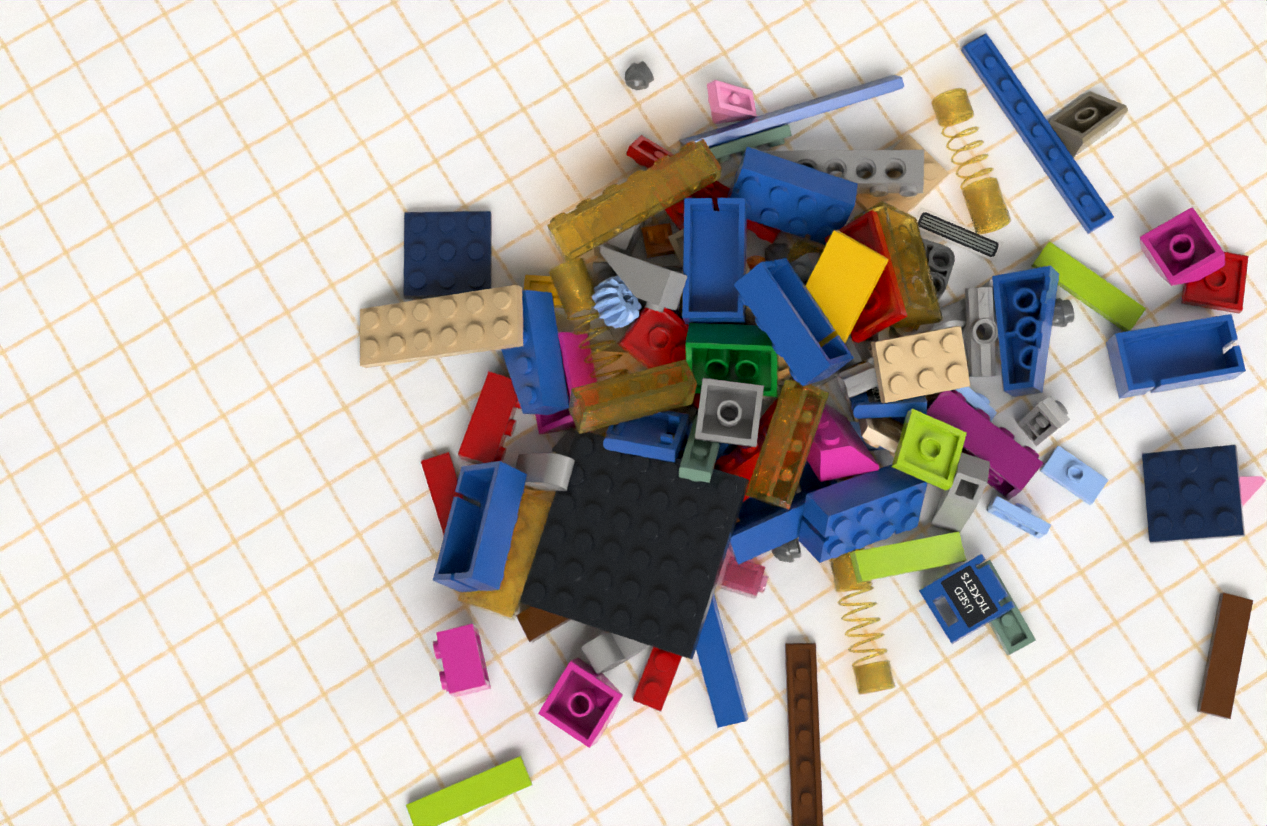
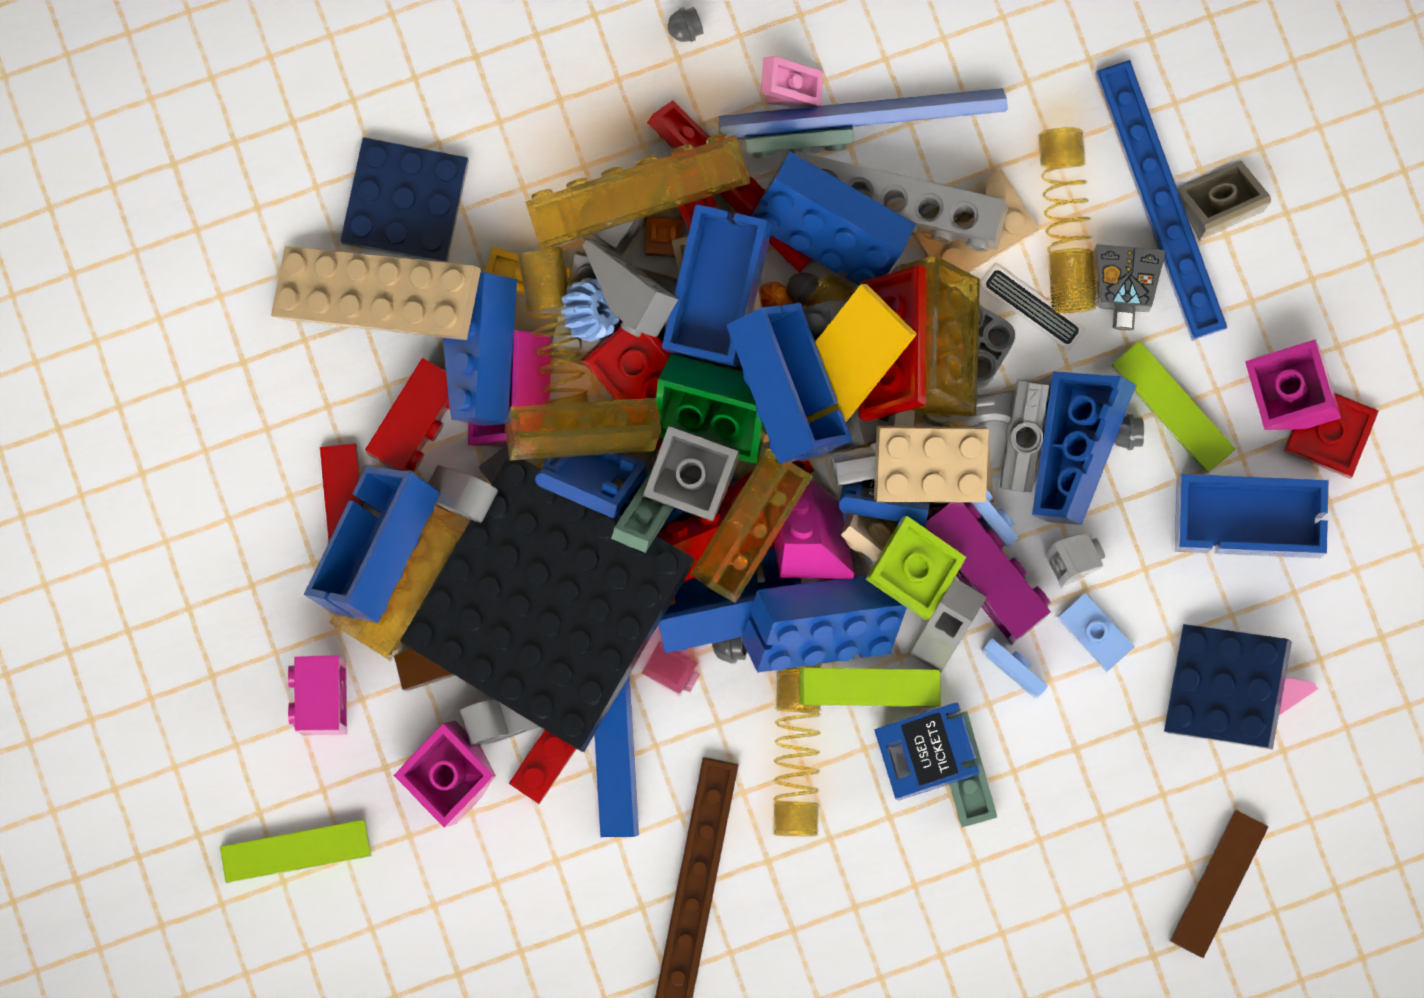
camera: 15 degrees right, 5 degrees up
(1029, 197) = (1126, 281): none -> dark grey torso

